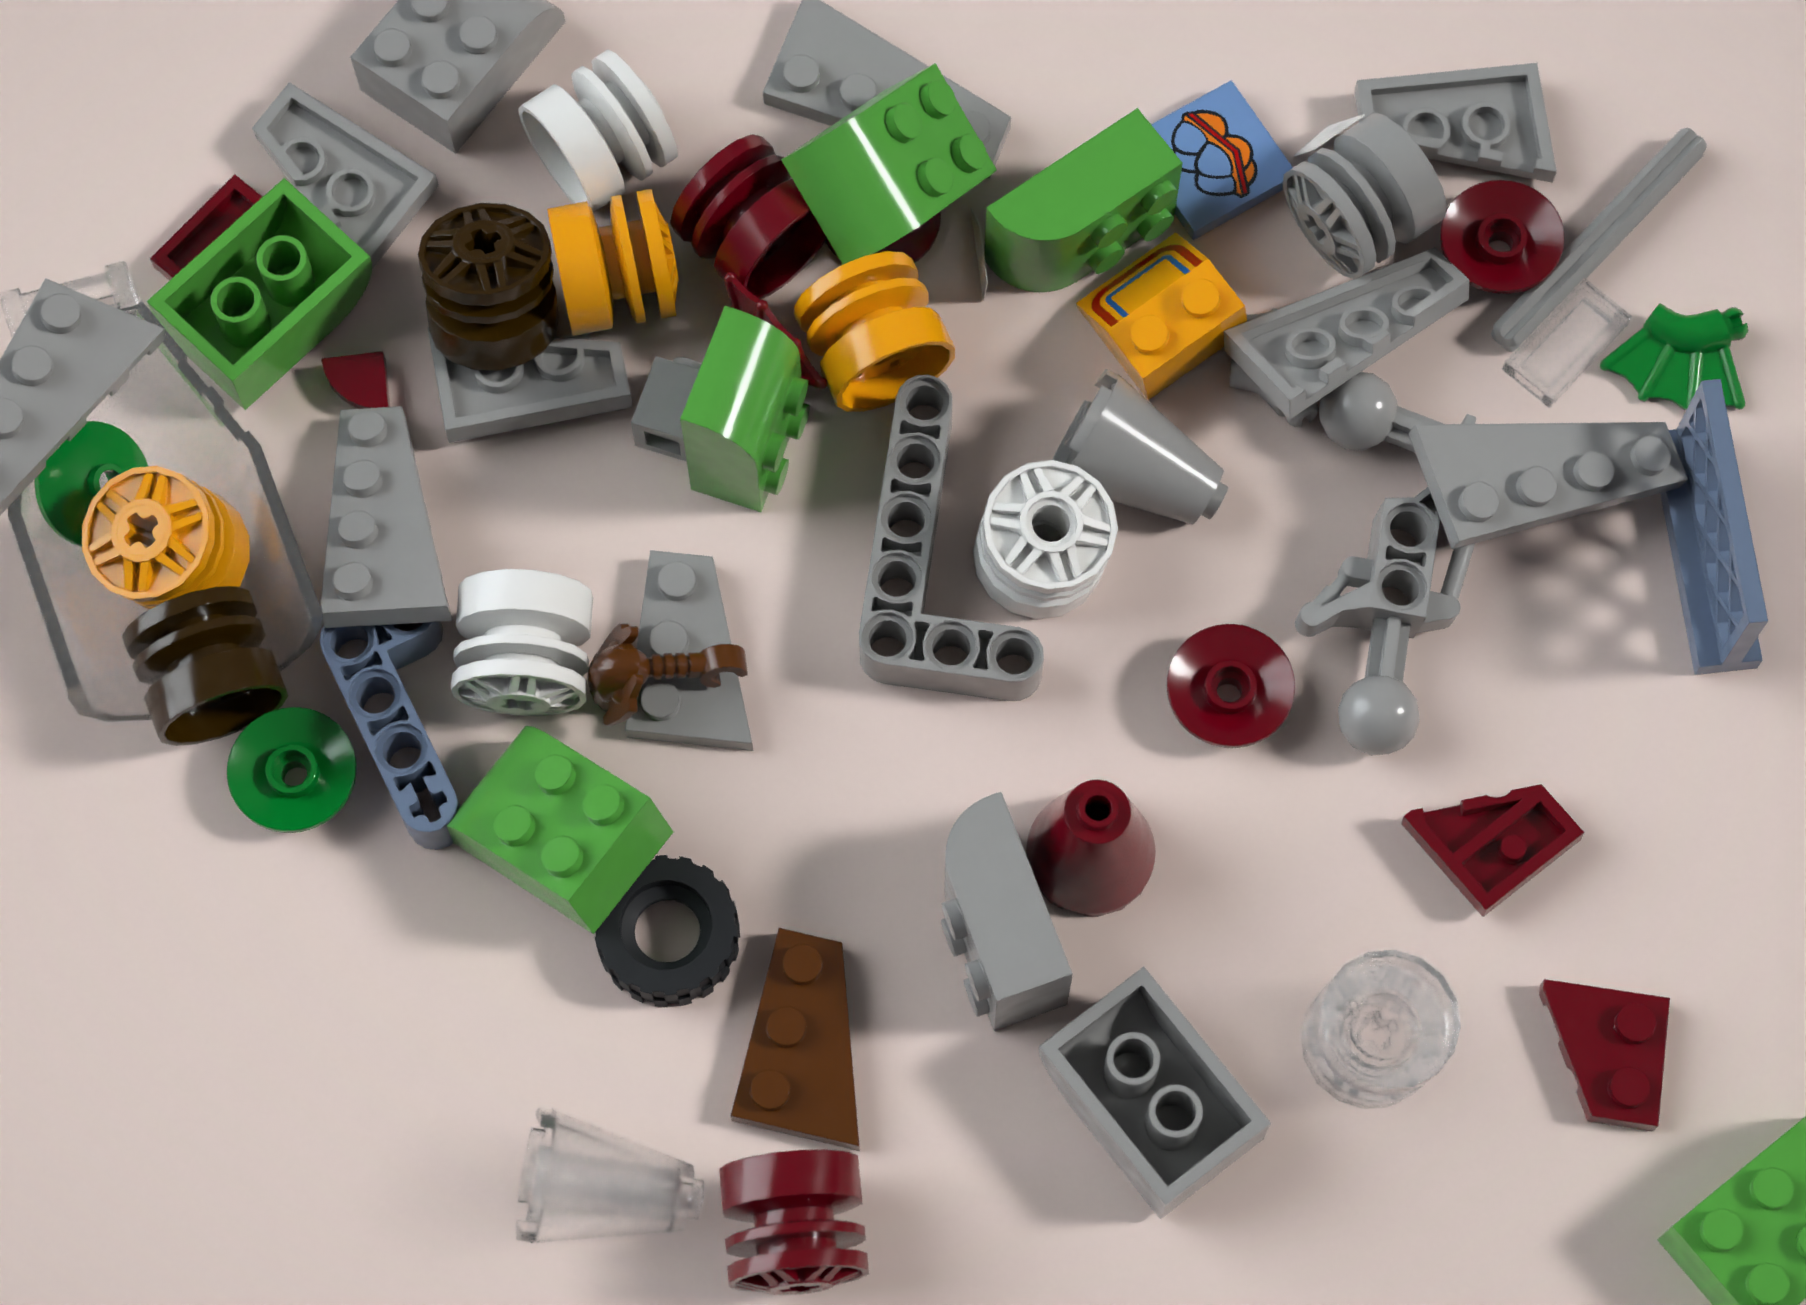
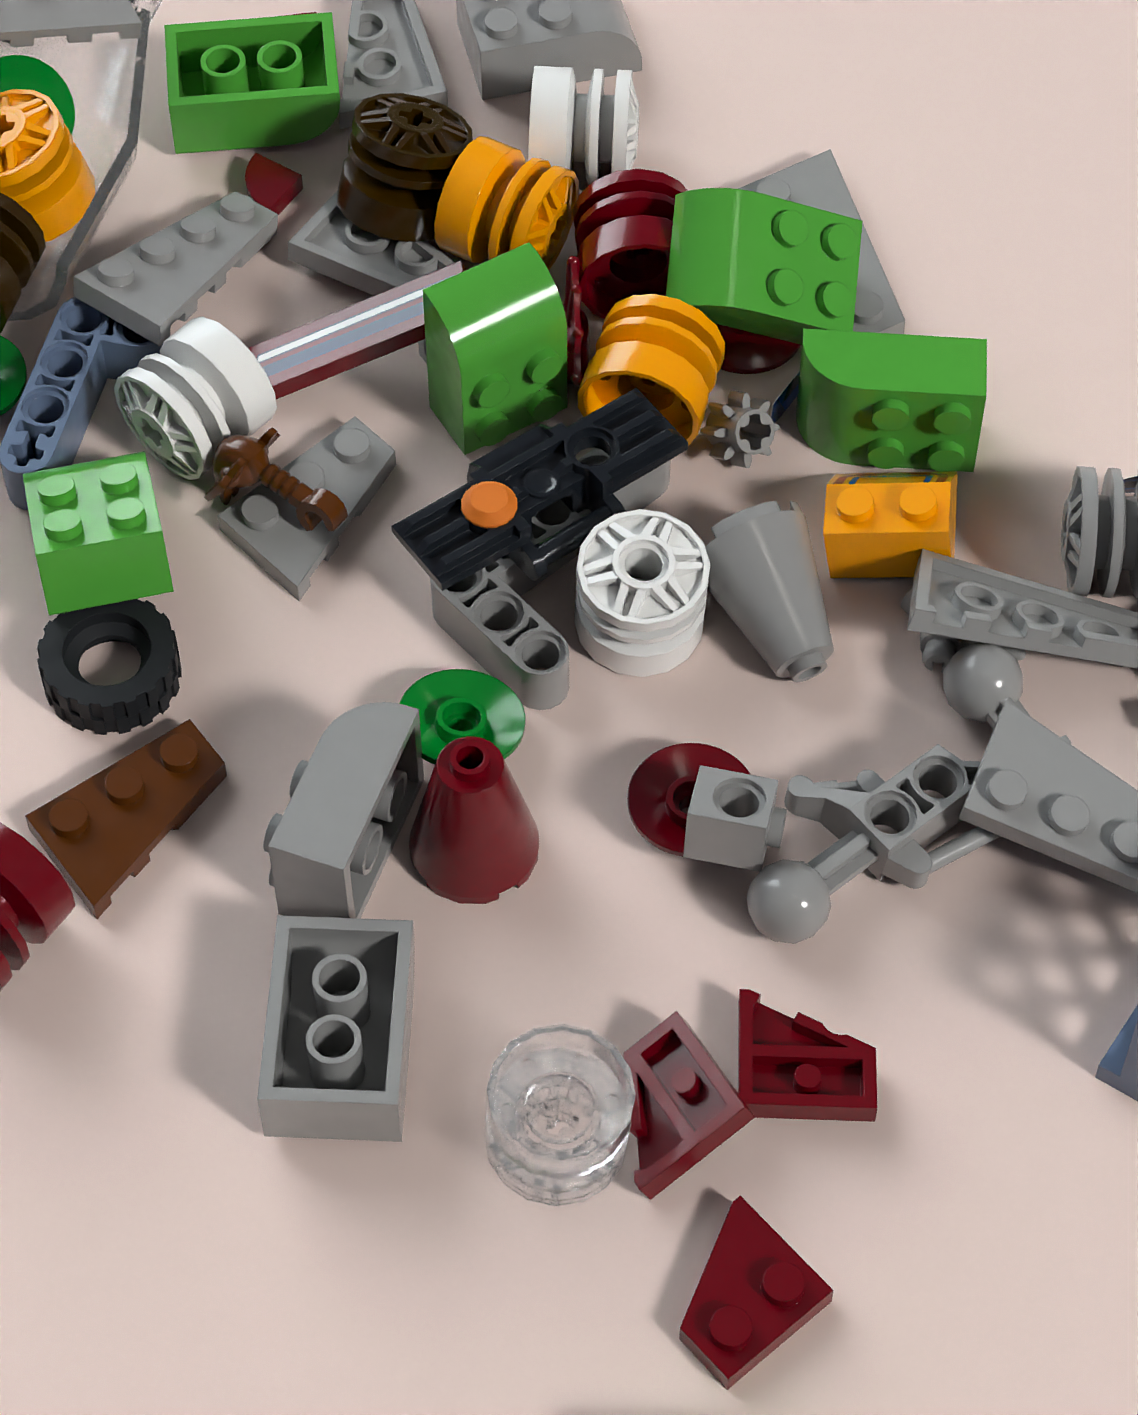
camera: 40 degrees right, 15 degrees down
(599, 468) = (348, 336): none -> tile
(883, 513) = (526, 475): none -> black piece
(978, 323) = (740, 429): none -> light grey gear
(996, 733) = (465, 705): none -> green dish
(1225, 159) = (1034, 446): medium blue tile -> none
(1289, 709) = (733, 819): none -> light grey brick
(1446, 931) = (680, 1104): none -> dark red wing

